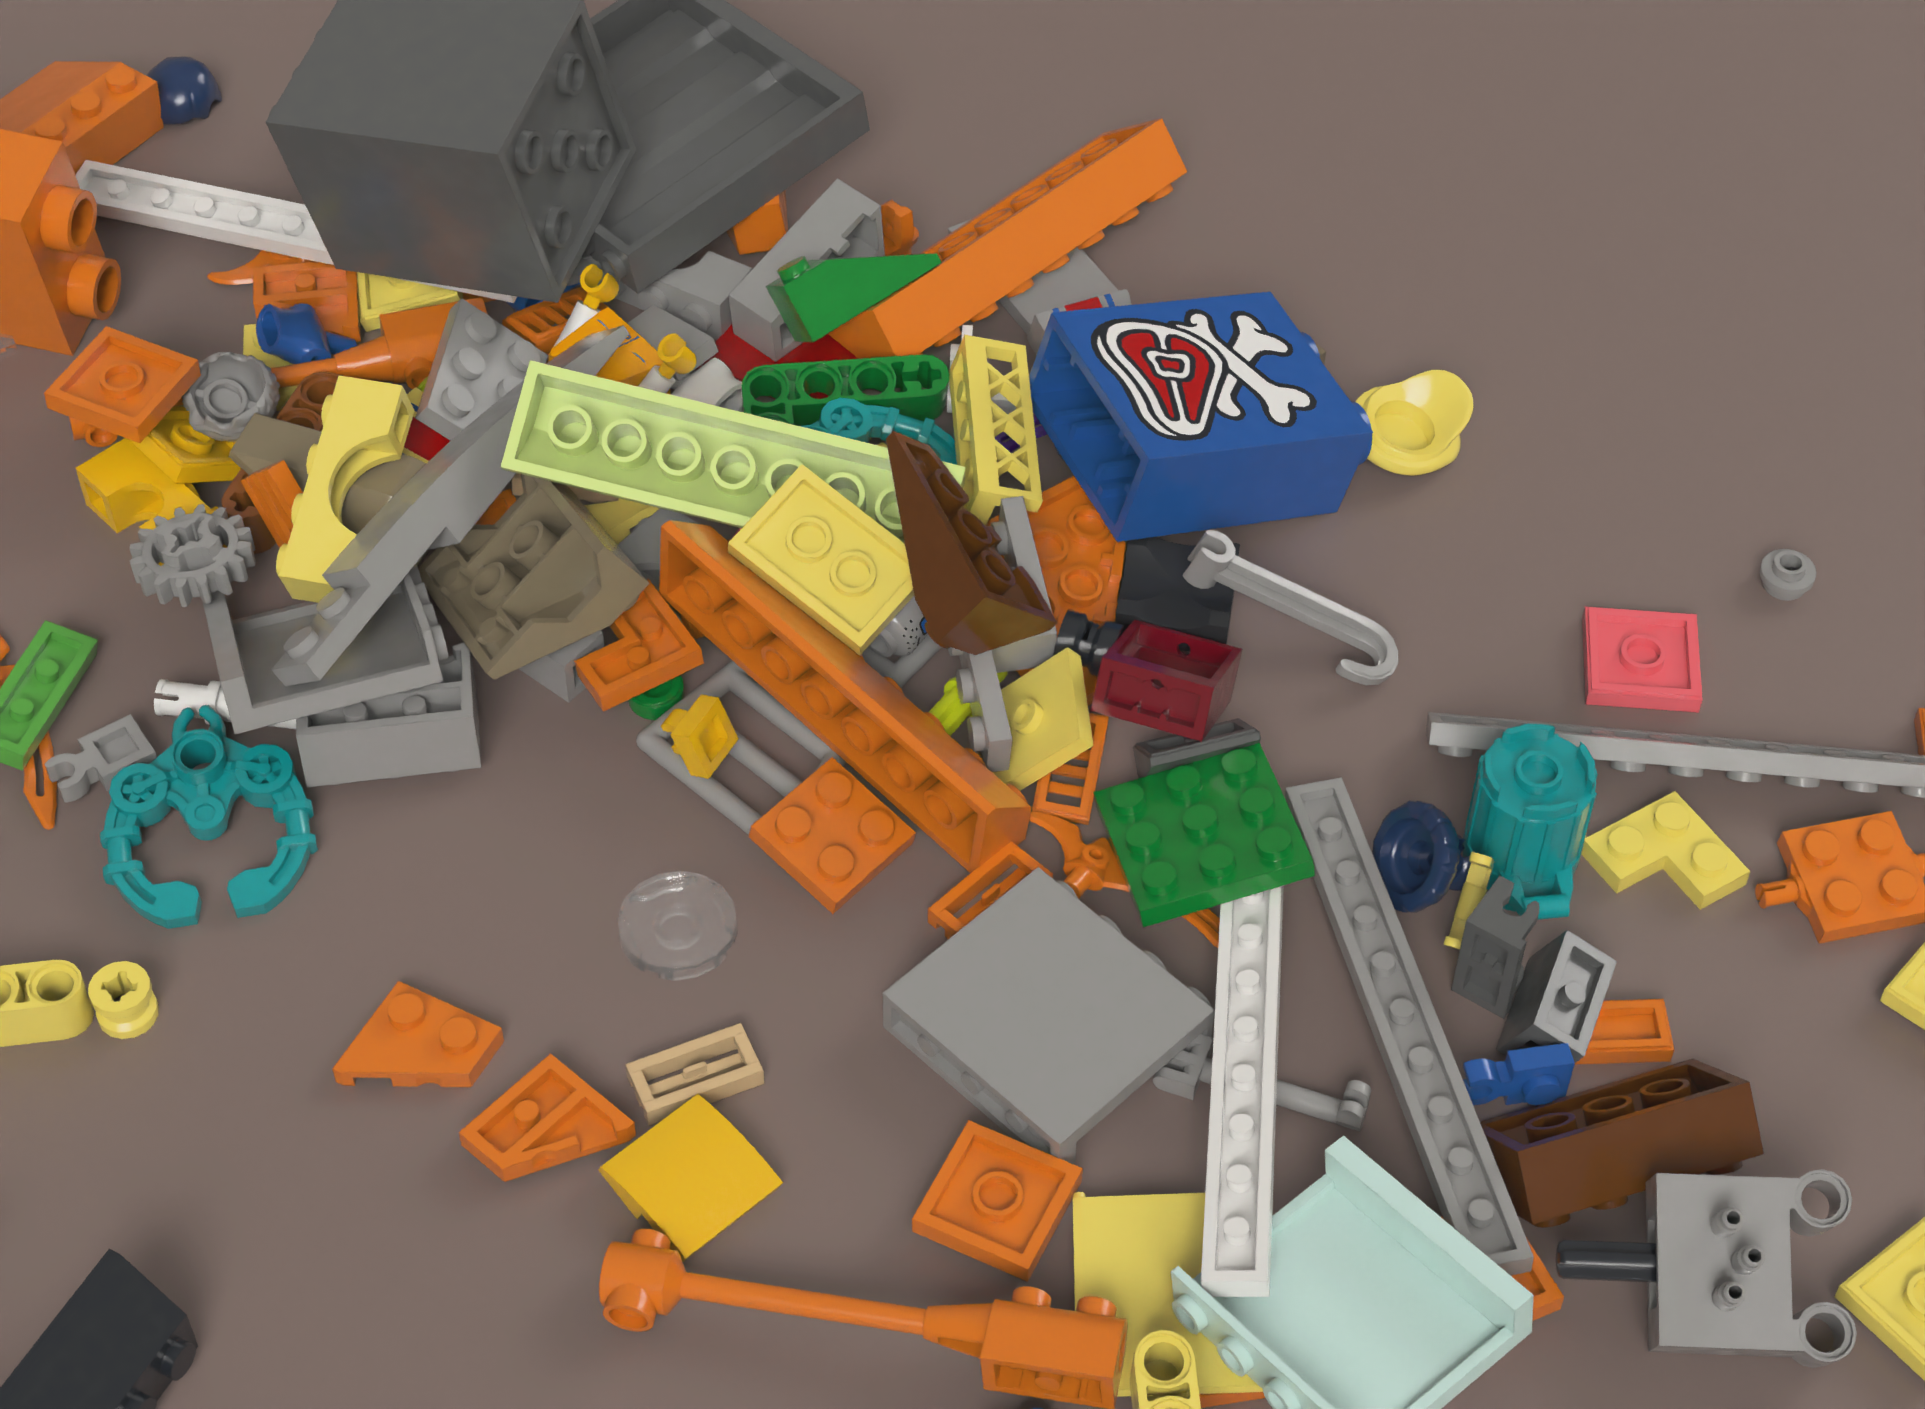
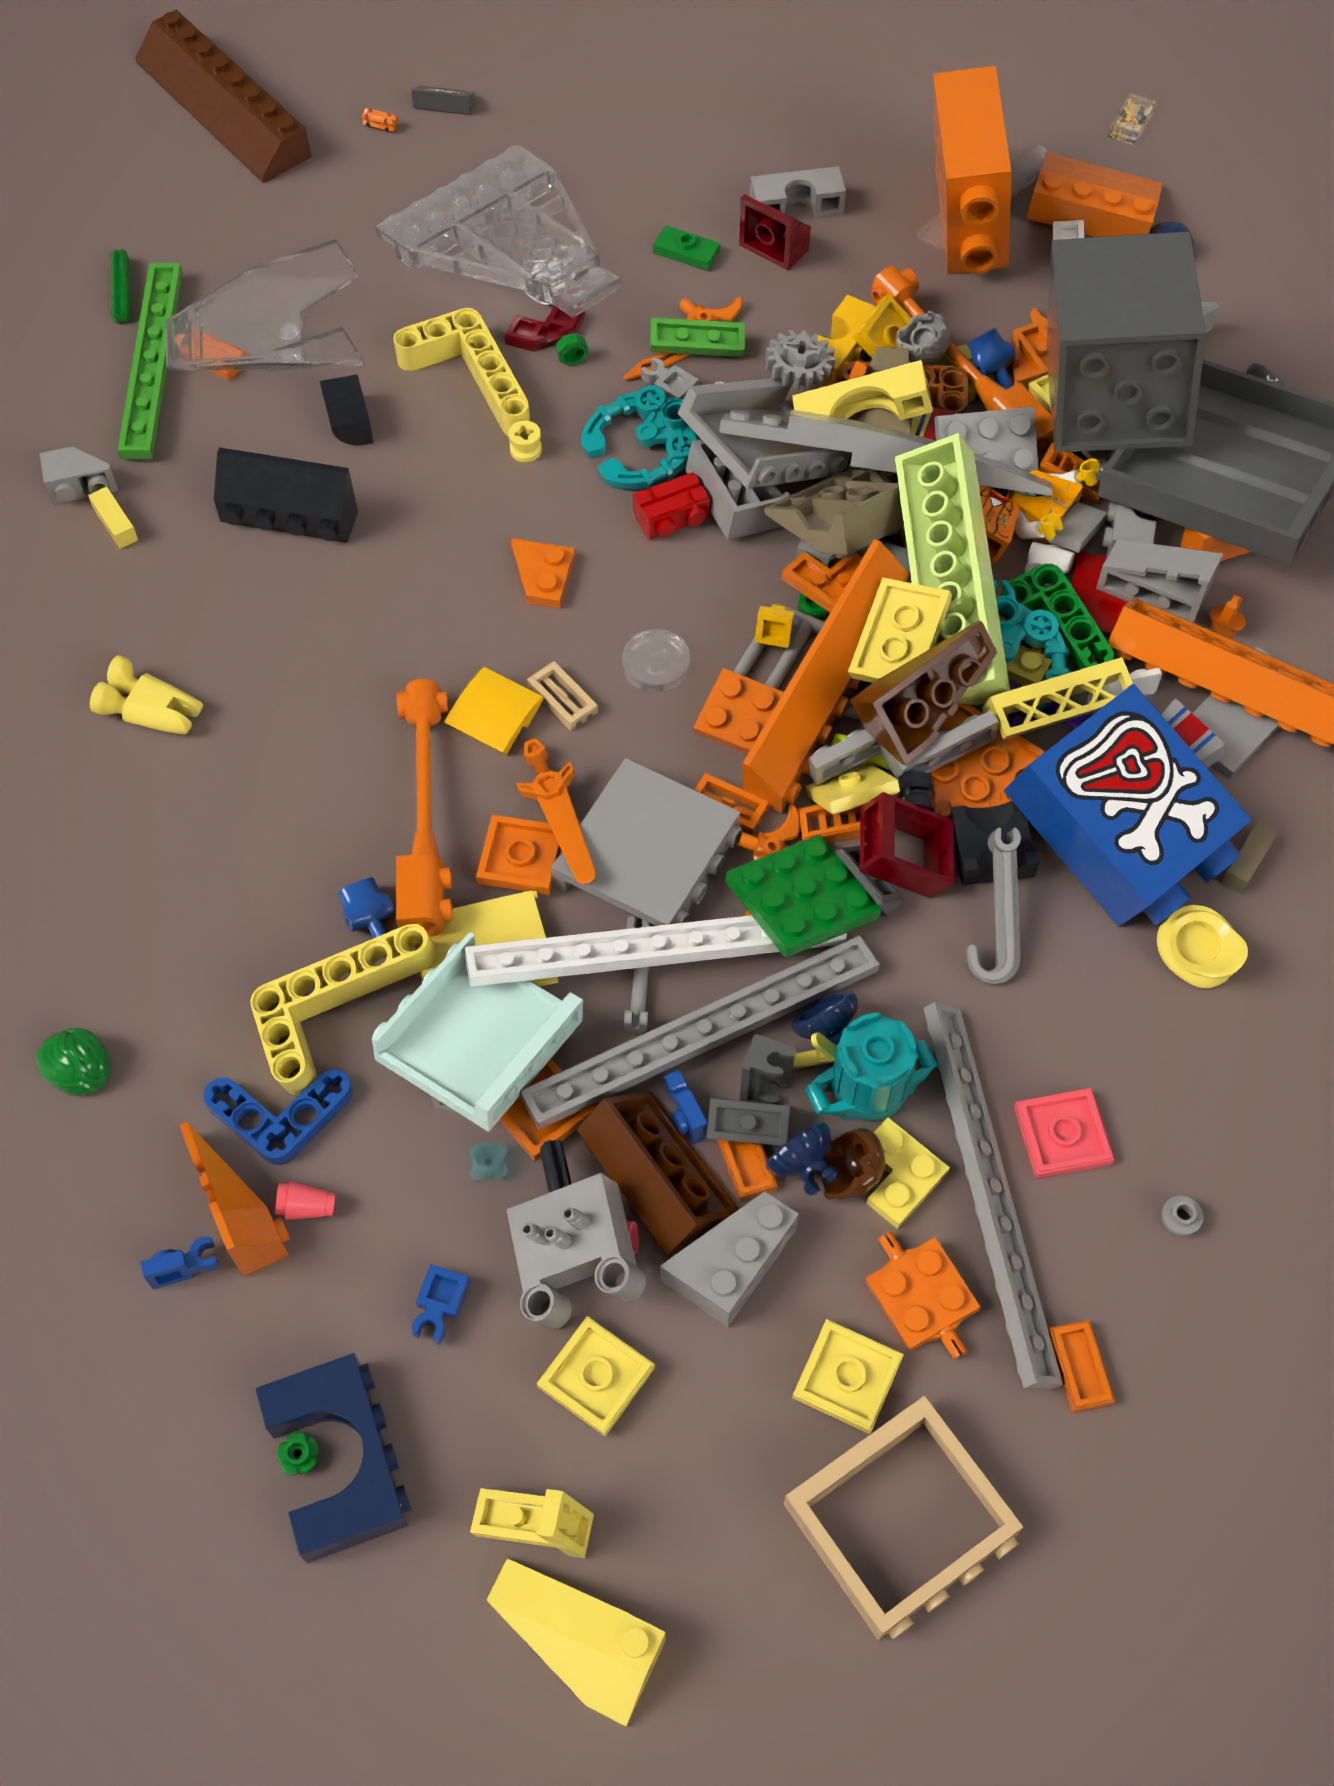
camera: 75 degrees right, 10 degrees up
(122, 384) = (898, 284): orange plate -> none
(381, 821) = (671, 506): none -> red brick
(544, 1123) = (507, 636): orange wing -> none
(828, 292) = (1140, 586): green slope -> none
(895, 1121) = (551, 792): none -> orange sword
(1549, 1356) = (484, 1151): none -> clear light blue plate
(1640, 940) = (805, 1156): none -> dark blue hair
(1660, 892) = (859, 1162): none -> reddish brown hair
(1800, 1082) = (731, 1258): none -> light grey wedge

